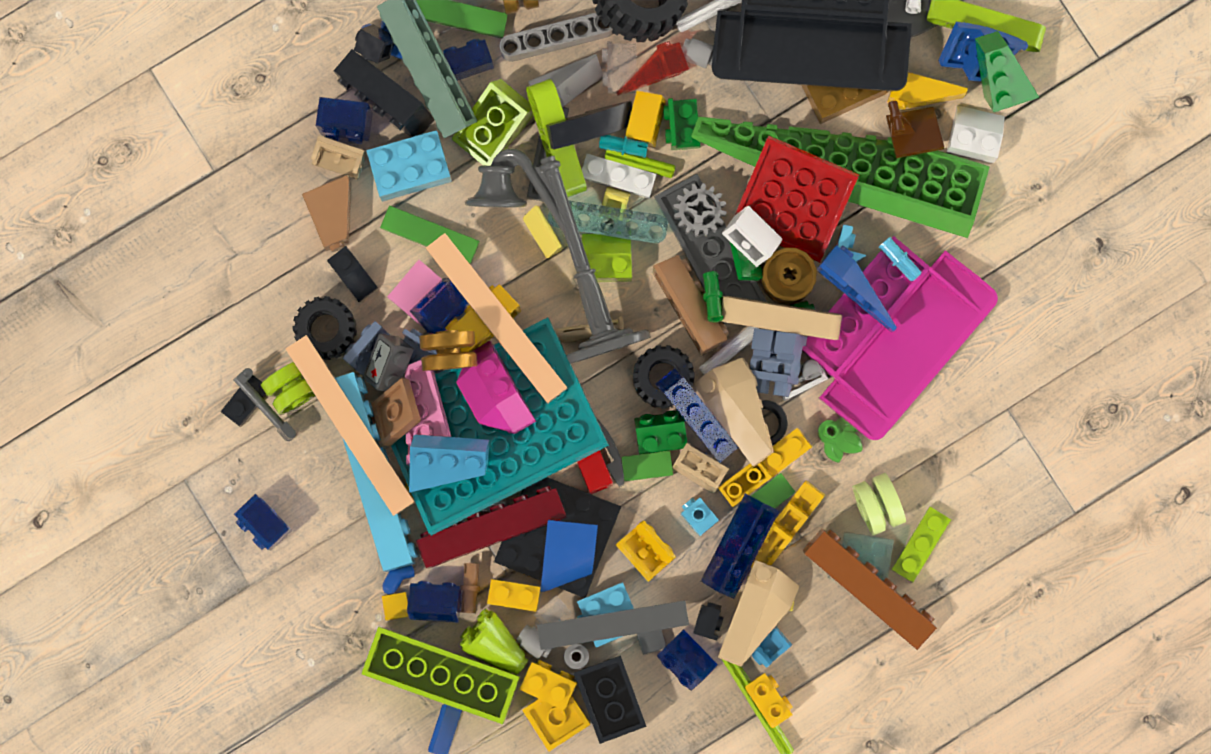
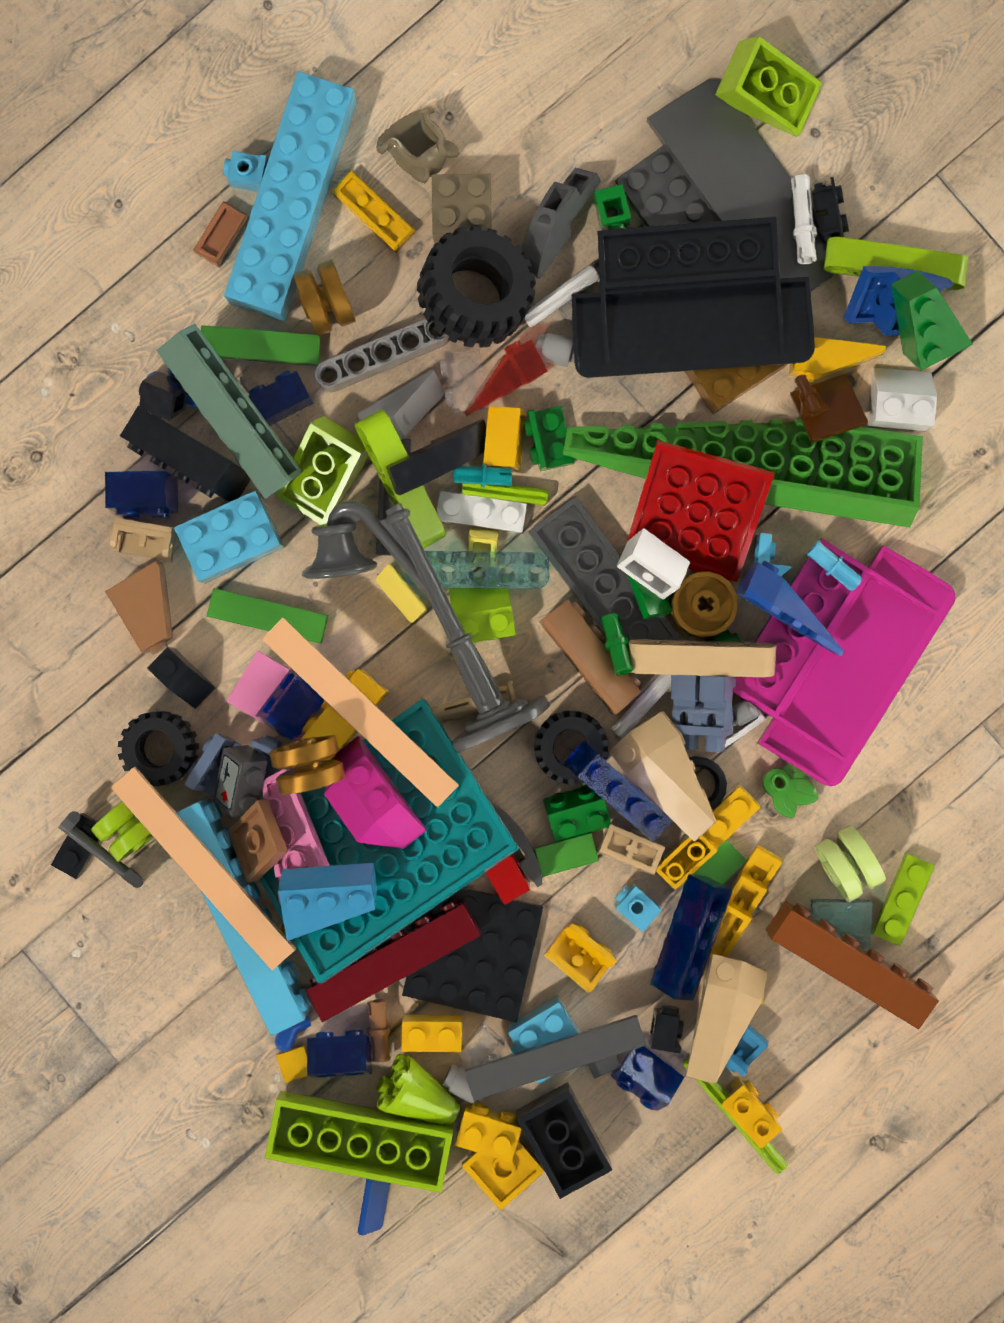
camera: 10 degrees left, 5 degrees up
(262, 523) = (120, 991): clear blue brick -> none
(567, 553) = (488, 976): blue slope -> none
(584, 656) = (517, 1105): light grey brick -> none
(688, 207) = (586, 528): light grey gear -> none

